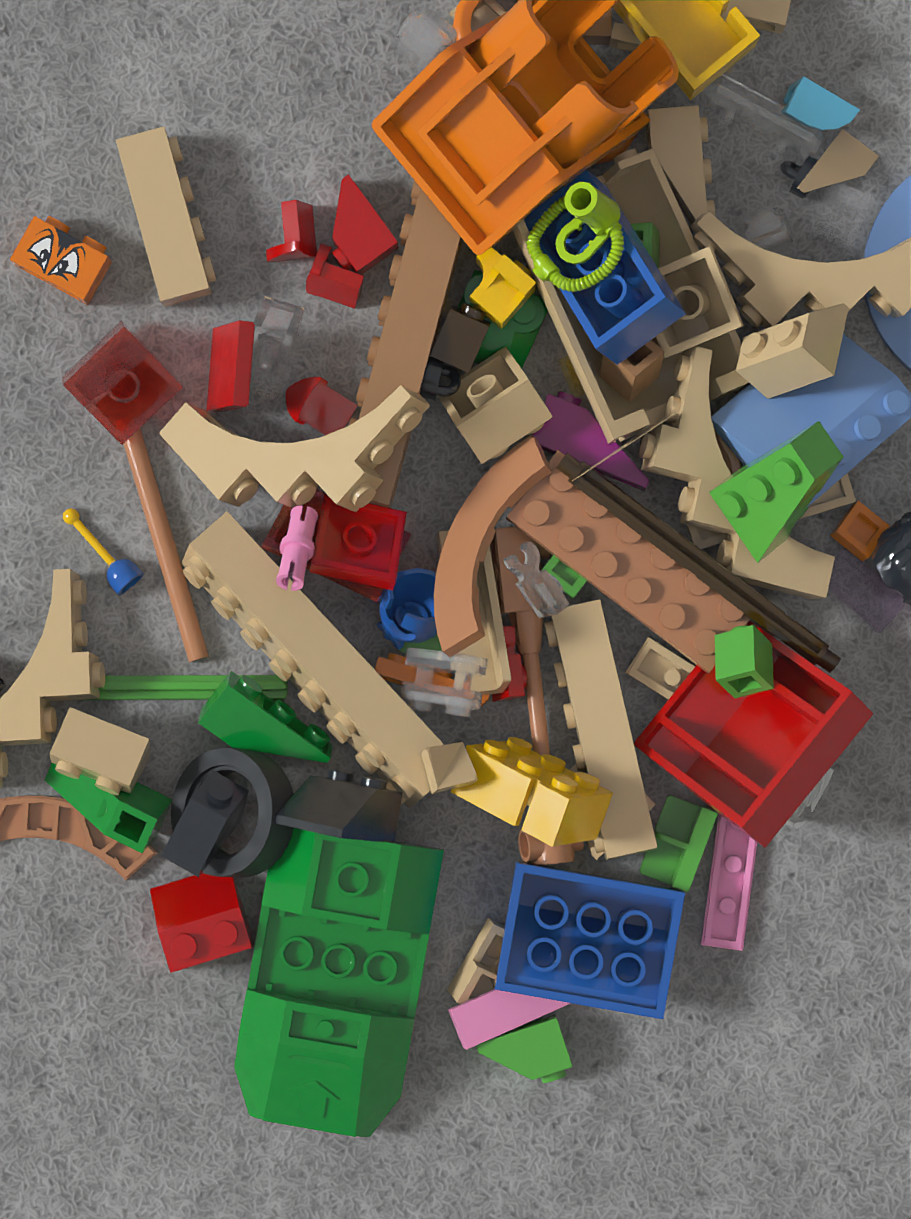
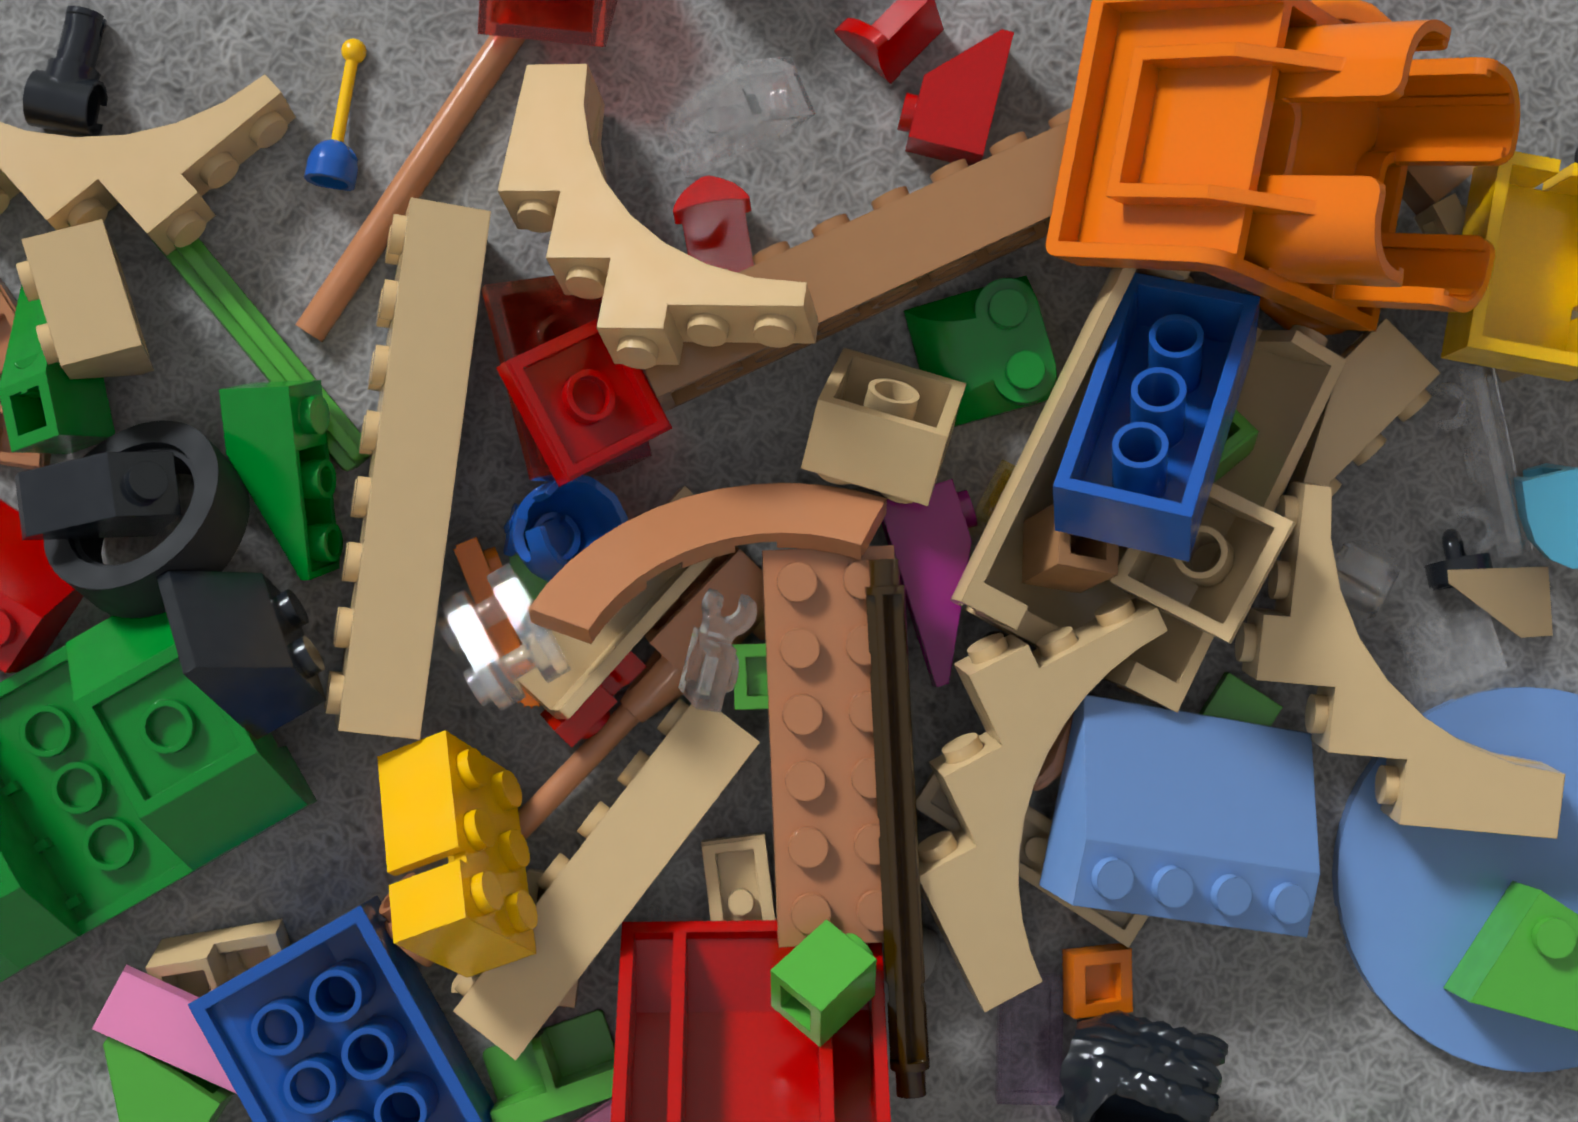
camera: 50 degrees right, 0 degrees up
(230, 366) = (675, 82): red tile -> none
(297, 548) = (510, 329): bright pink pin -> none
(332, 281) = (874, 121): red tile -> none
(430, 384) = (855, 327): black tile -> none
(448, 767) = (396, 731): tan slope -> none
(461, 336) = (932, 320): dark brown brick -> none
(503, 287) = (1032, 319): yellow brick -> none
(588, 207) = (1223, 338): lime piece -> none
(635, 438) = (1011, 634): tan sticker -> none
(776, 488) = (1070, 852): bright green wedge -> none
(793, 351) = (1249, 731): tan slope -> none

